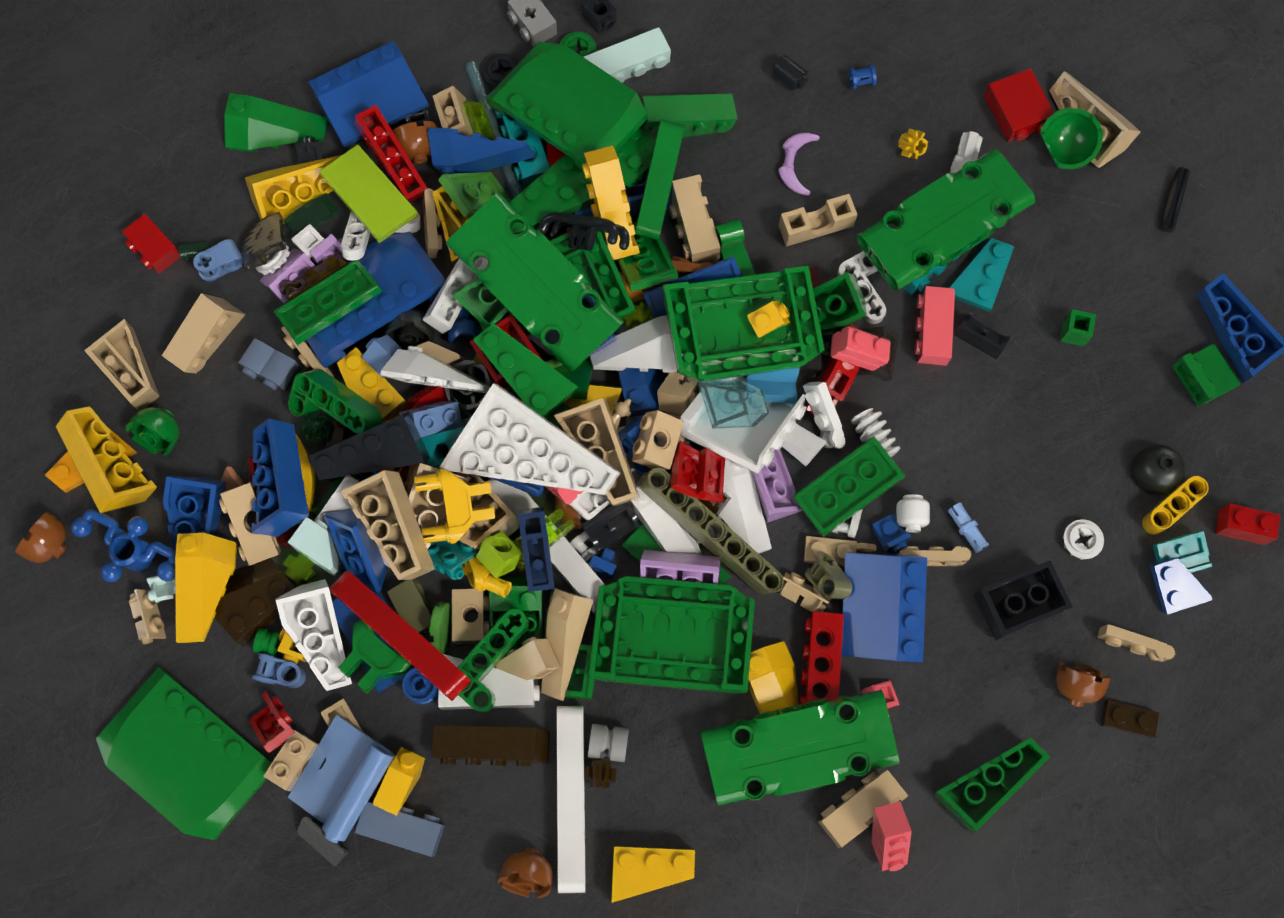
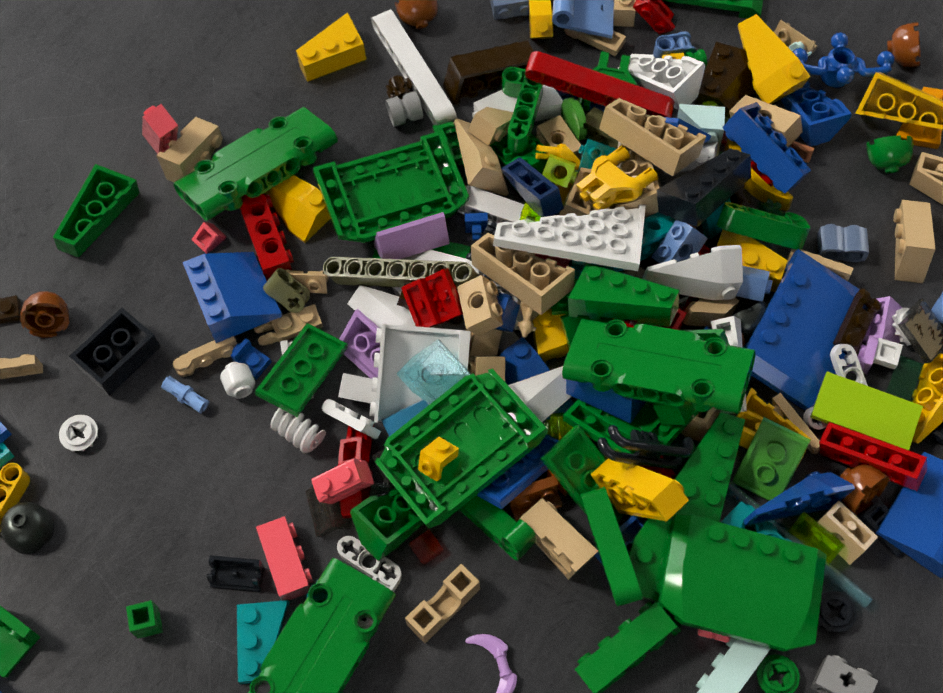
camera: 160 degrees right, 10 degrees down
(327, 301) = (829, 299): green tile -> none

